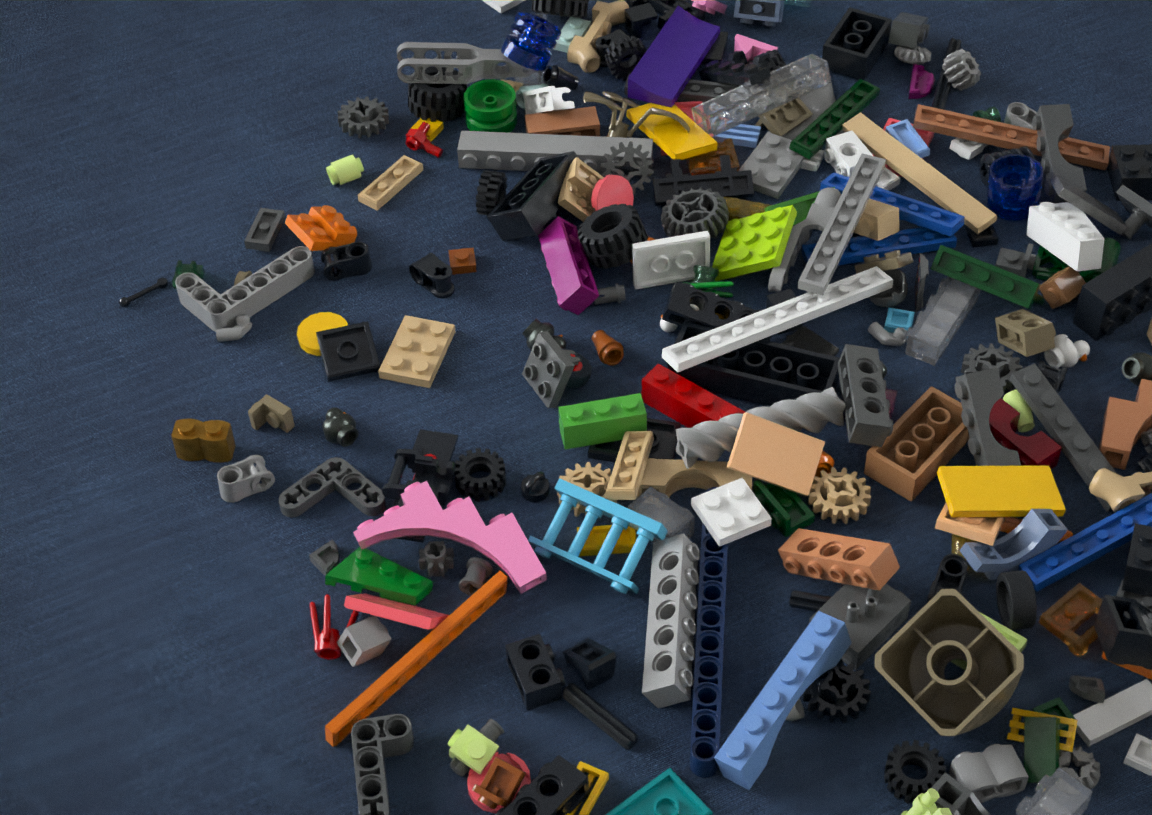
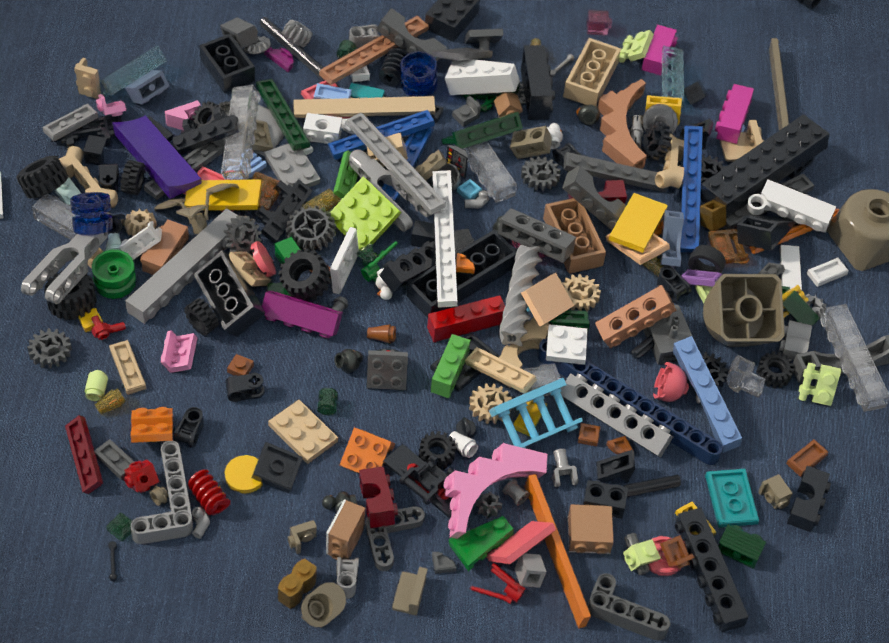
camera: 65 degrees left, 5 degrees up
(184, 472) = (323, 604): none -> dark tan piece
(246, 210) = (84, 454): none -> dark red plate
(252, 253) = (141, 476): none -> red brick
(265, 549) = (410, 591): none -> dark tan panel
(271, 313) = (208, 493): none -> red piece
(293, 441) = (345, 530): none -> medium nougat piece
(335, 190) = (110, 401): none -> clear yellow cone
(349, 458) = (379, 505): none -> dark red arch
(427, 409) = (365, 451): none -> orange bracket
(435, 202) = (178, 352): none -> bright pink bracket
(469, 347) = (327, 403): none -> clear green wheel
(474, 677) = (590, 529): none -> medium nougat piece
(507, 496) = (465, 445): none -> white cone
(548, 606) = (563, 468): none -> light grey piece
(578, 89) = (138, 221): none -> tan gear
(628, 612) = (589, 434): none -> dark orange tile
(635, 654) = (619, 445): none -> dark orange tile
(650, 214) = (285, 248): none -> green brick
(755, 354) = (464, 265): none -> orange tile
(767, 652) = (671, 383): none -> coral cylinder
(857, 733) = (741, 377): none -> clear brick
(945, 164) = (362, 91): none -> teal tile
(987, 606) = (701, 277): none -> medium lavender tile
(1106, 570) = (713, 215): none -> pearl gold brick

